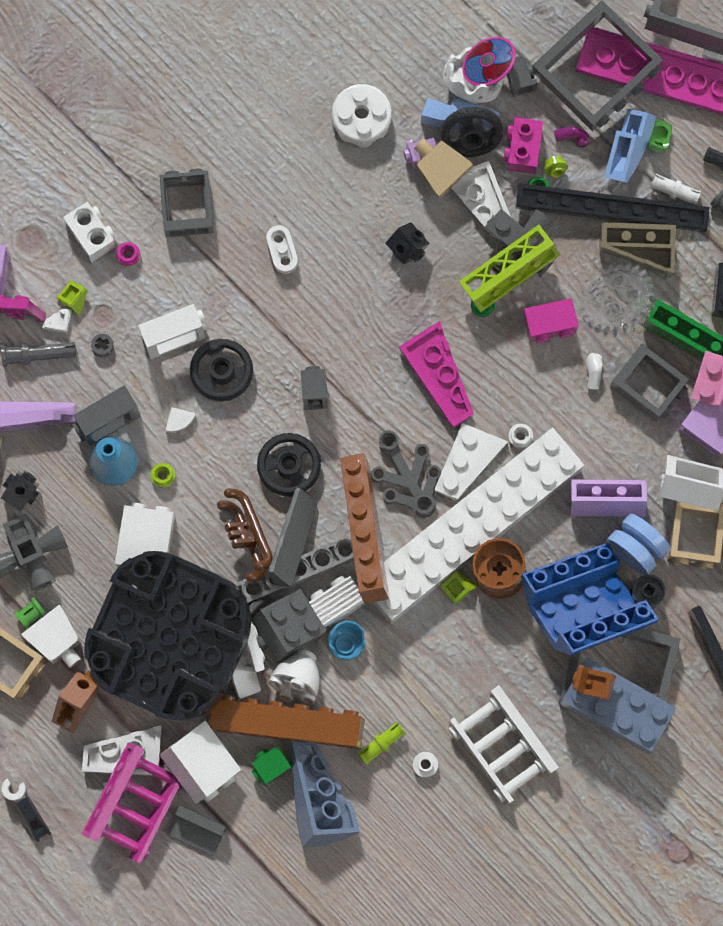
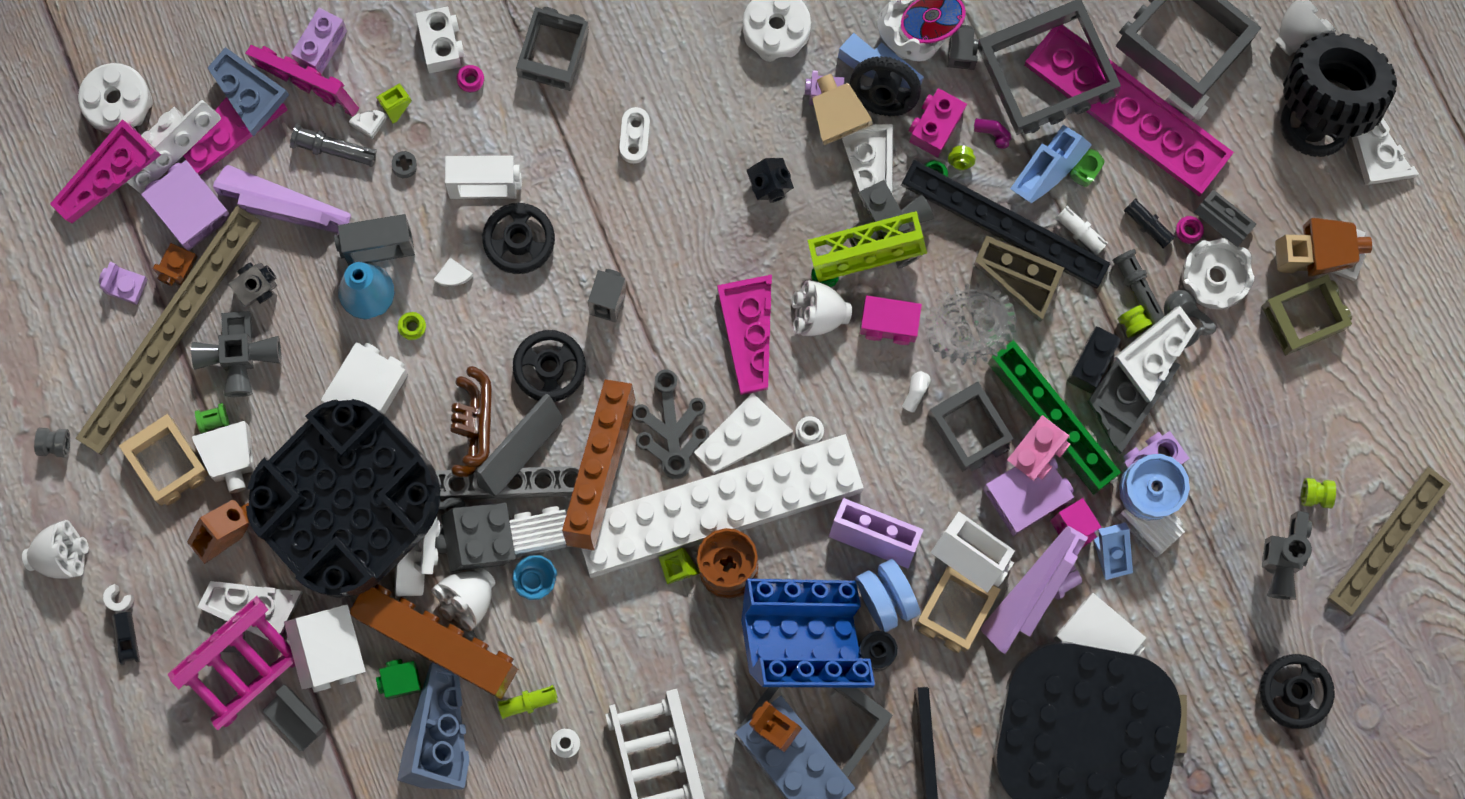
camera: 15 degrees right, 0 degrees up
(489, 334) = (819, 309): none -> white piece

